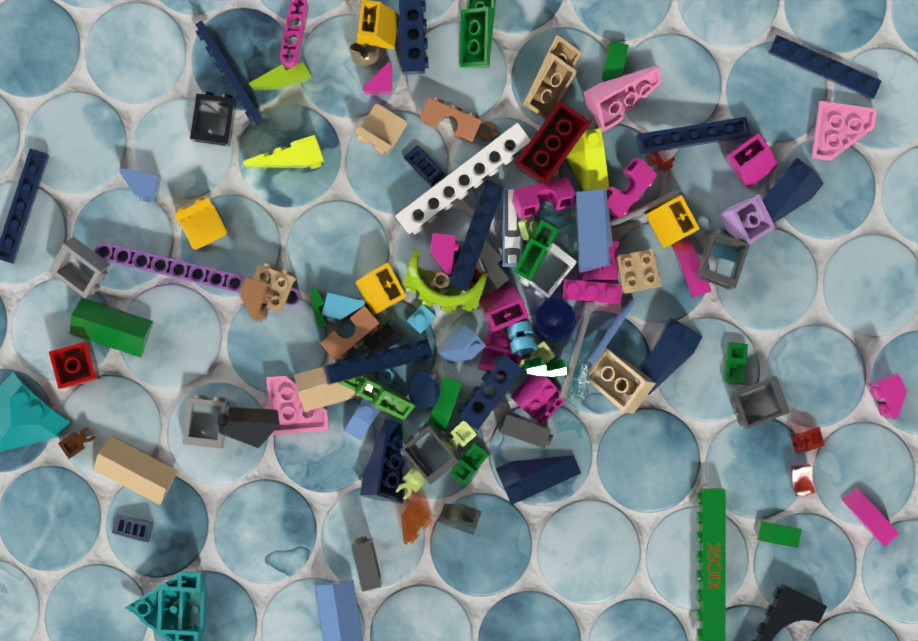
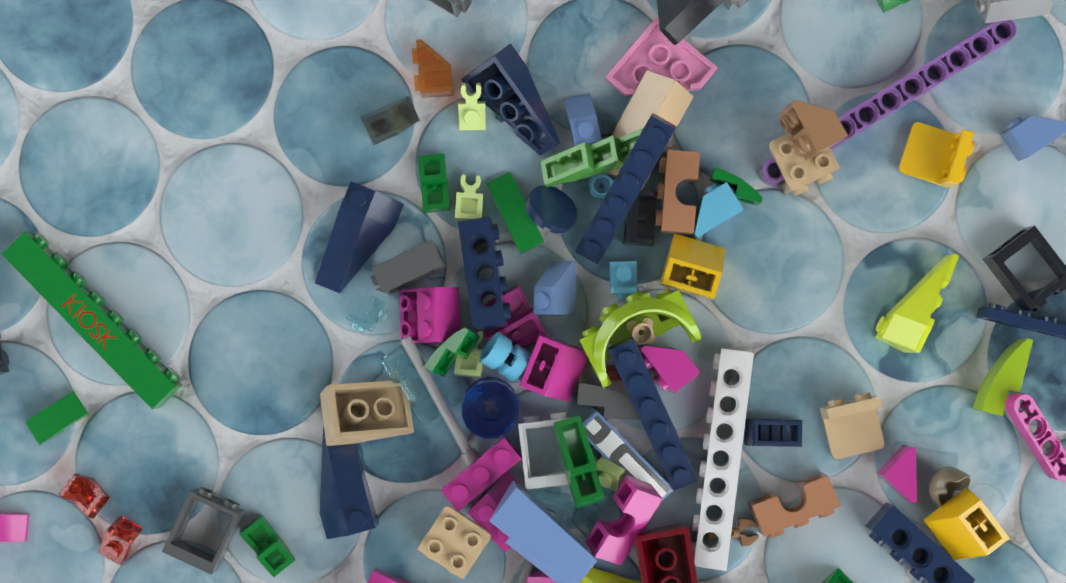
camera: 135 degrees right, 0 degrees up
(420, 464) = (487, 134): dark grey window -> none
(612, 330) = (422, 454): medium blue bar -> none

